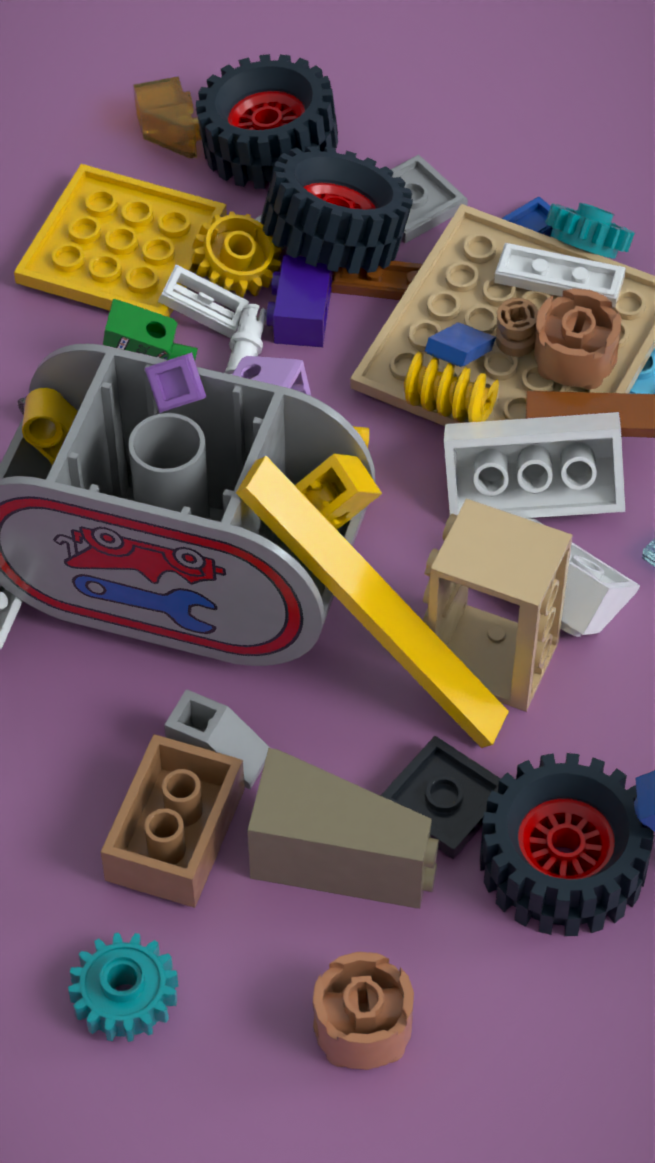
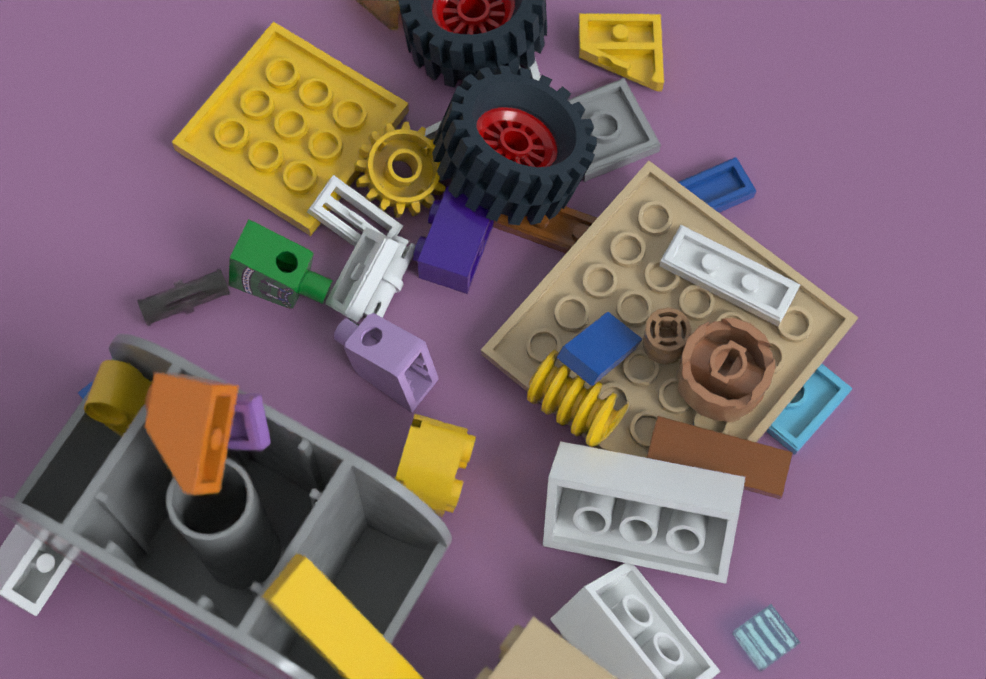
camera: 10 degrees right, 15 degrees up
(142, 374) = (191, 427): none -> orange slope
(225, 334) = (362, 274): none -> white tile
(339, 488) = (387, 568): yellow brick -> none
(411, 129) = (624, 45): none -> yellow wing
(589, 229) = (775, 220): teal gear -> none

